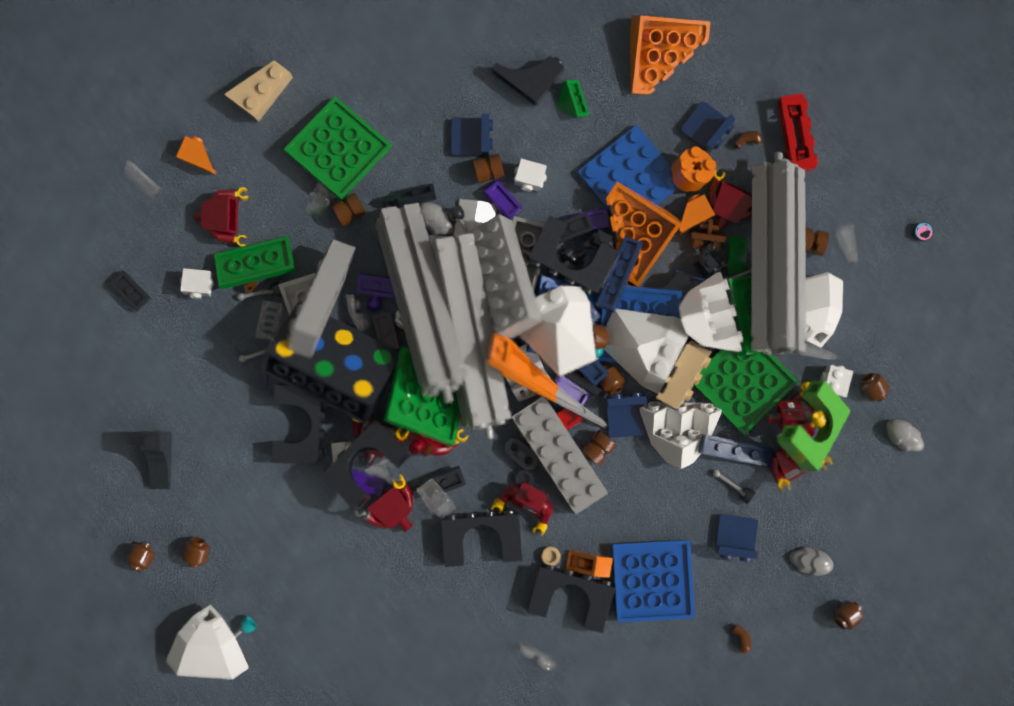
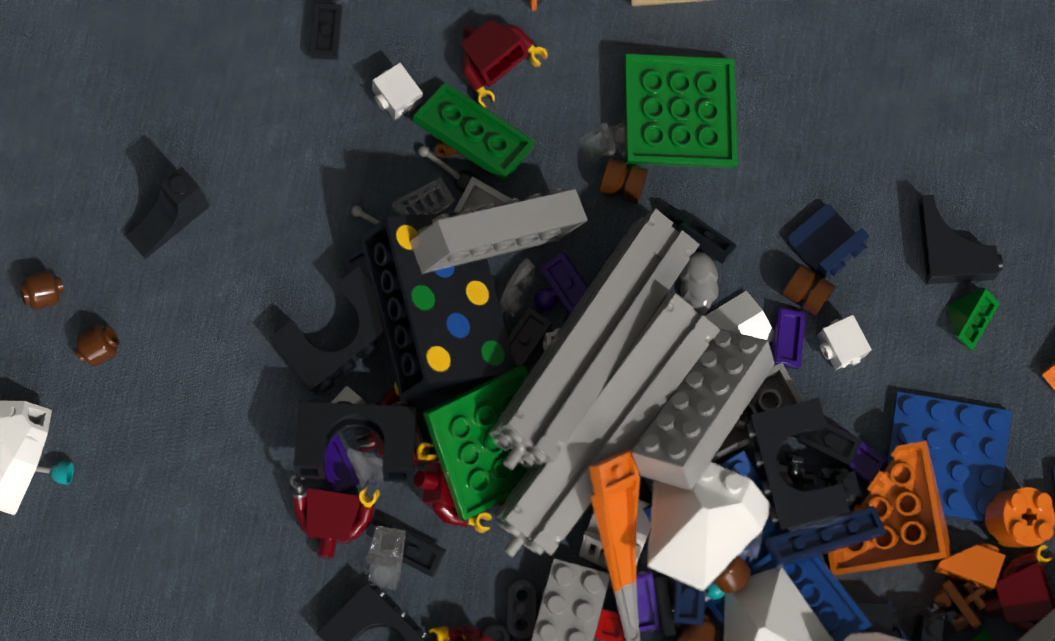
camera: 50 degrees right, 10 degrees down
(457, 215) = (725, 301): black hinge -> none

